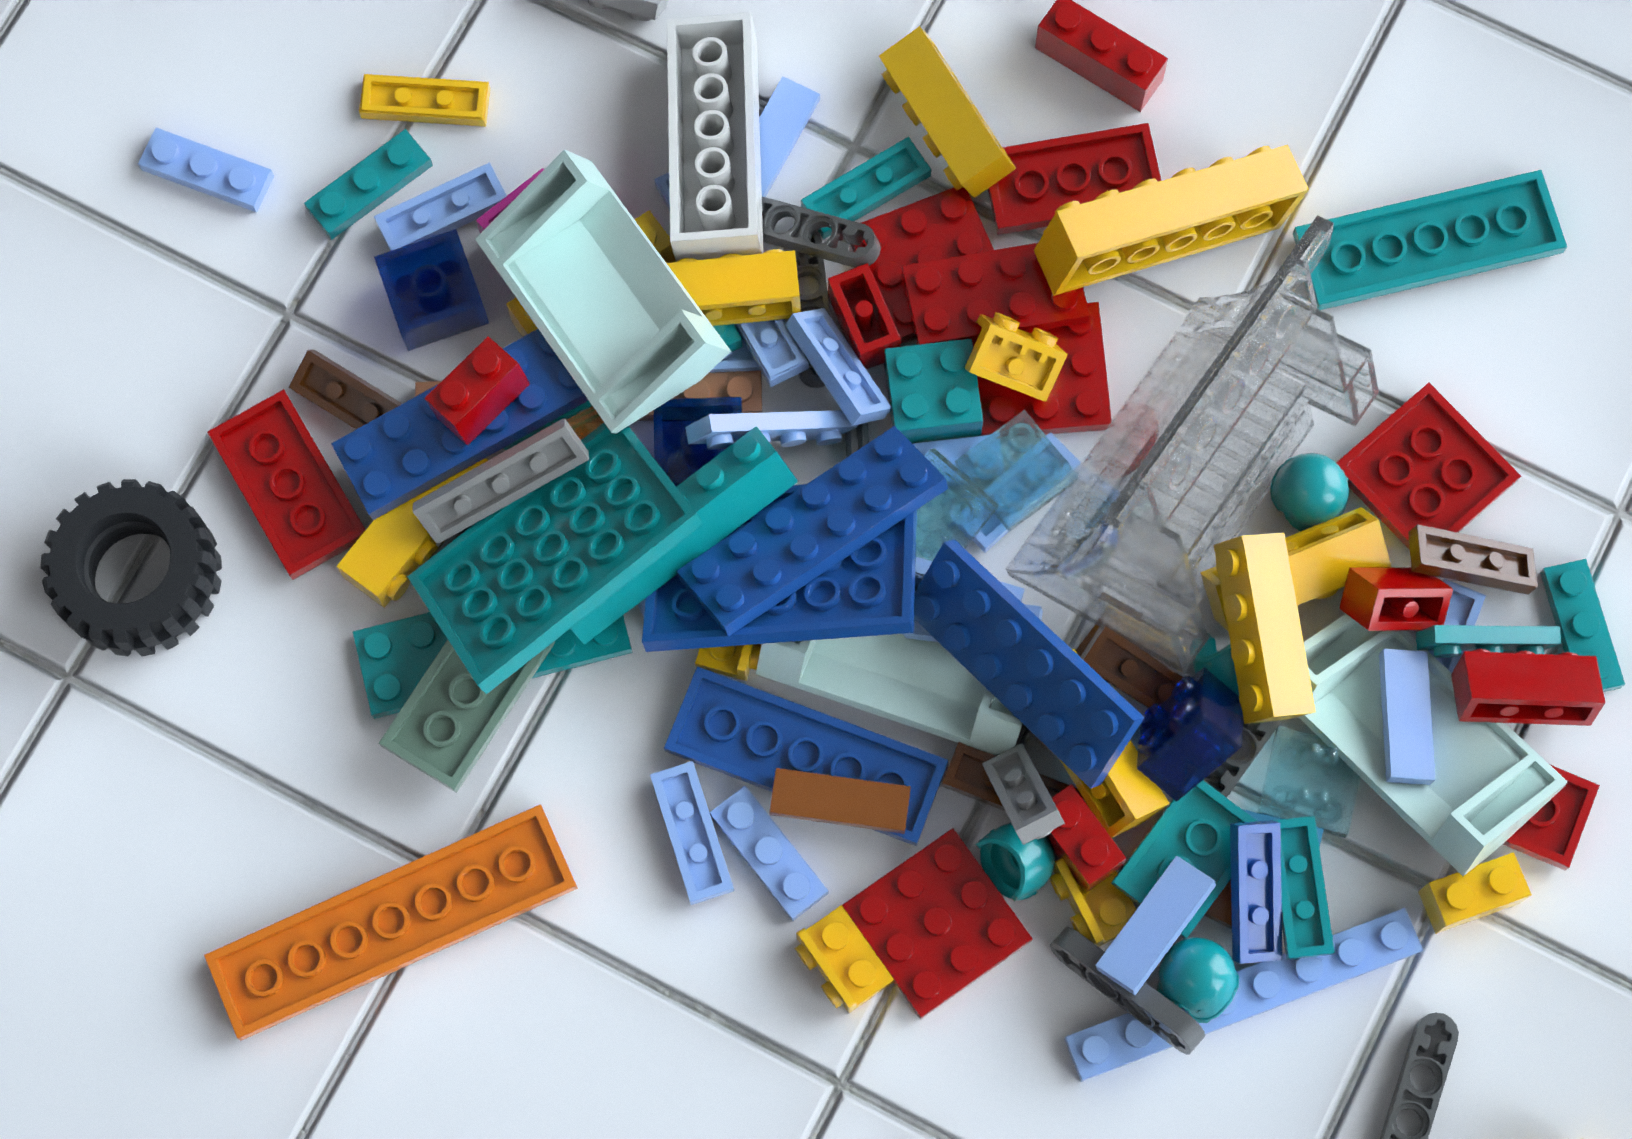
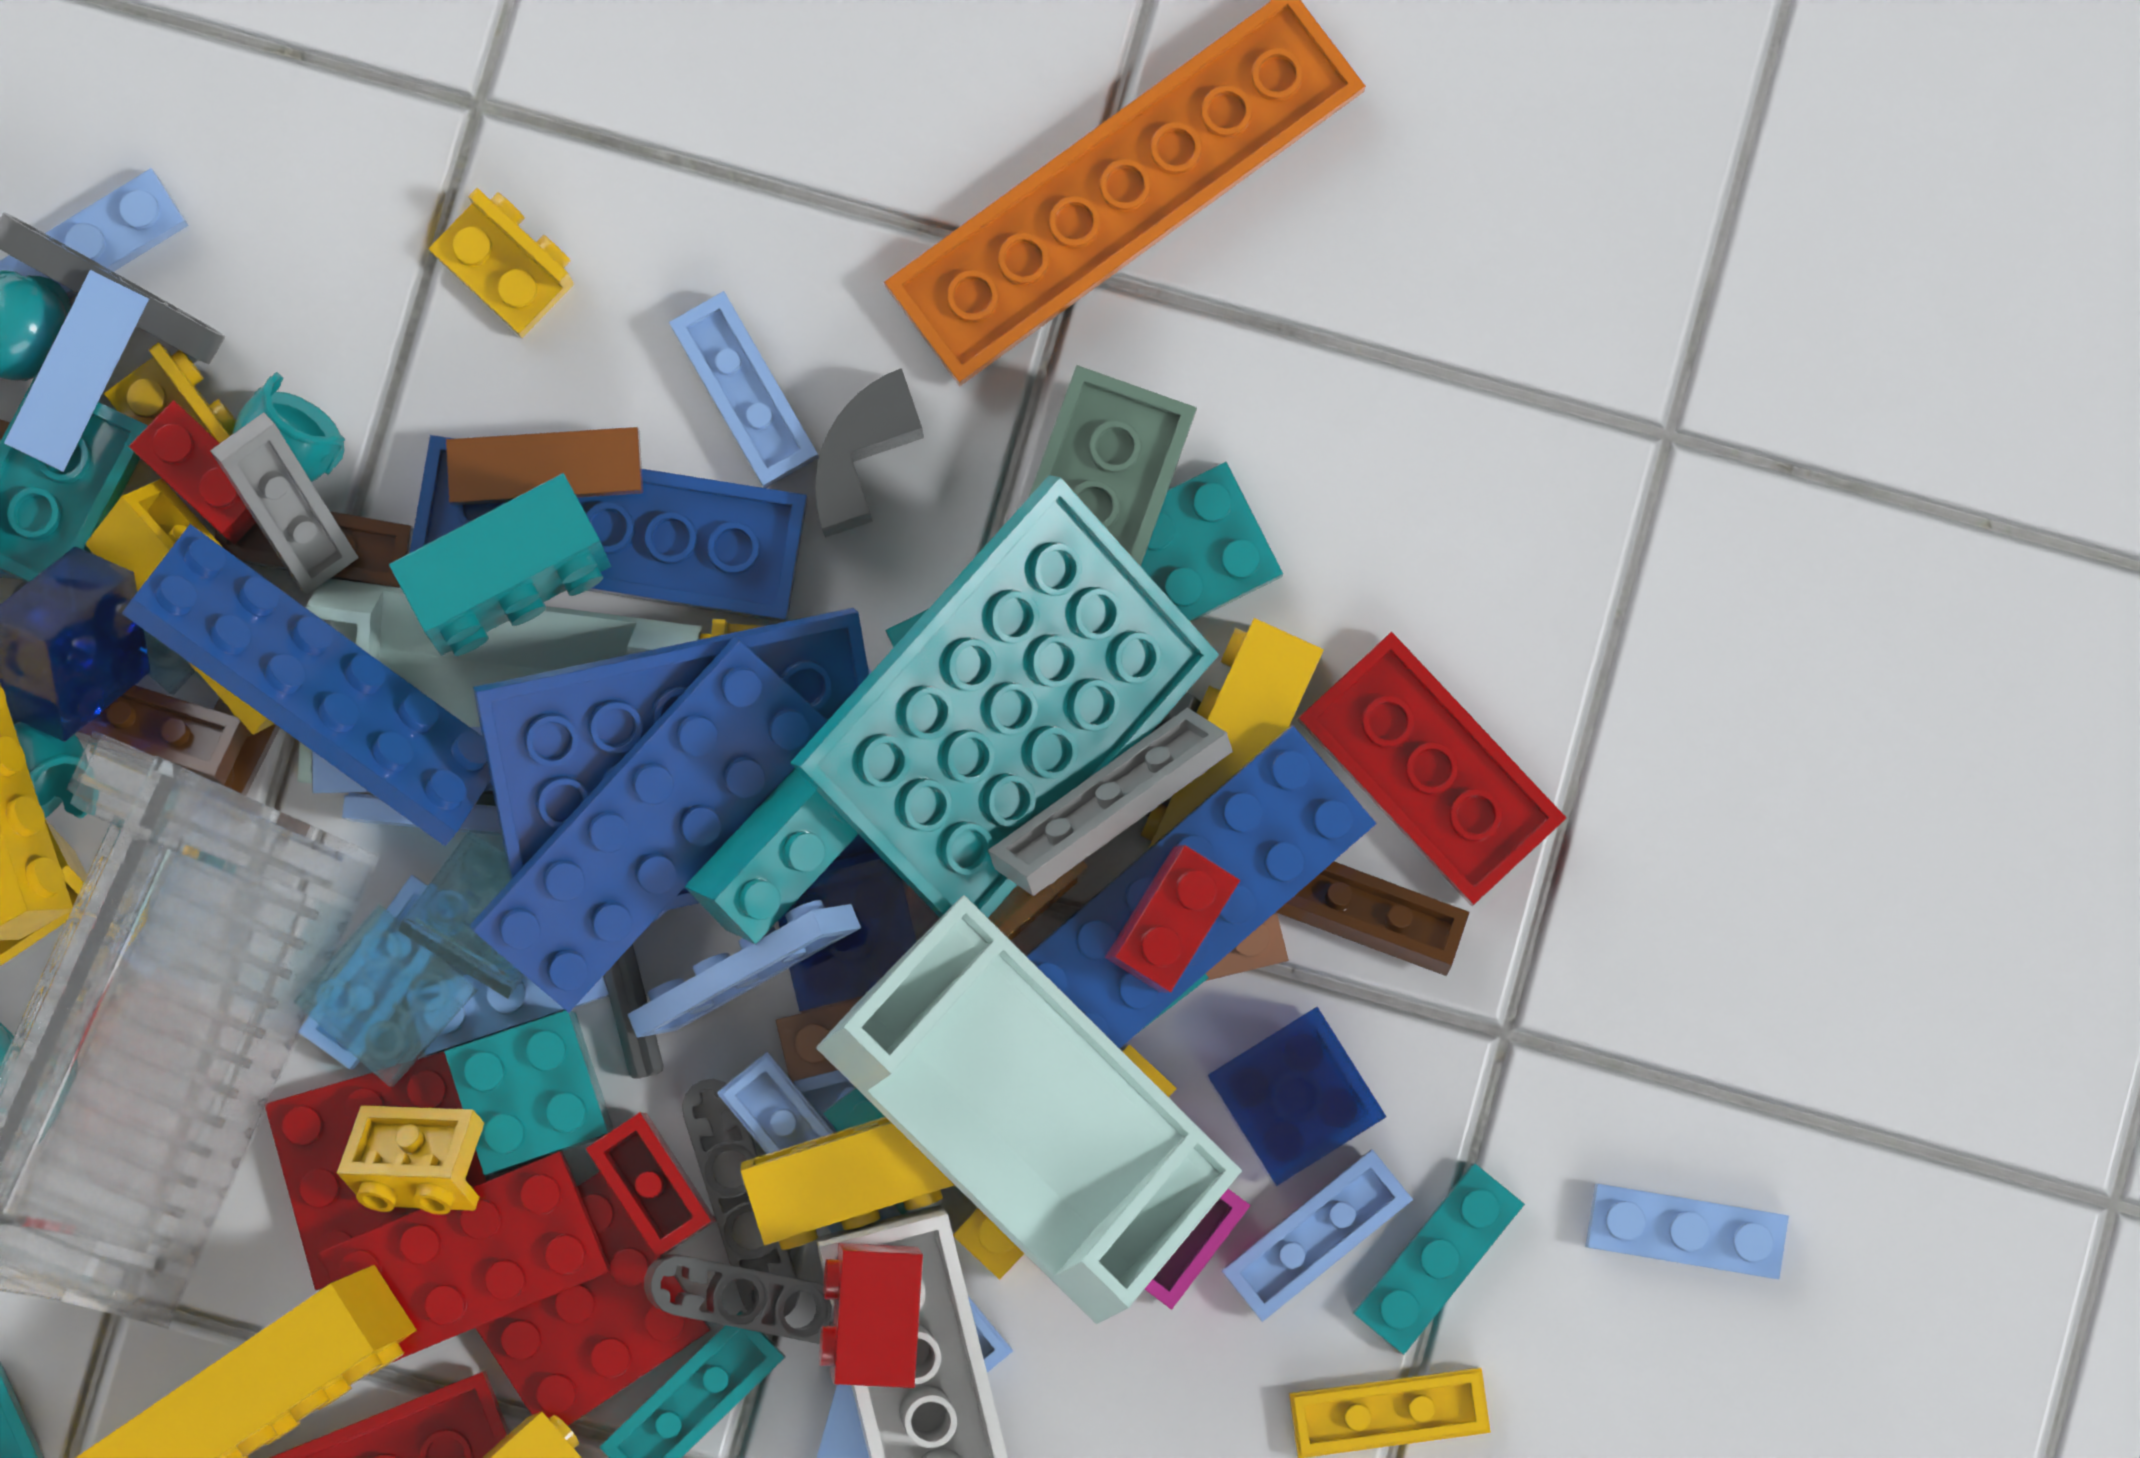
camera: 165 degrees right, 10 degrees up
(97, 526) = (1662, 520): black tyre -> none
(609, 789) = (871, 423): none -> dark grey brick
(729, 181) = (873, 1315): none -> red brick
(769, 853) = (634, 387): light blue plate -> none
(838, 366) = (671, 1094): light blue plate -> none
(880, 721) = (502, 567): none -> teal brick
(937, 923) = (386, 339): red plate -> none

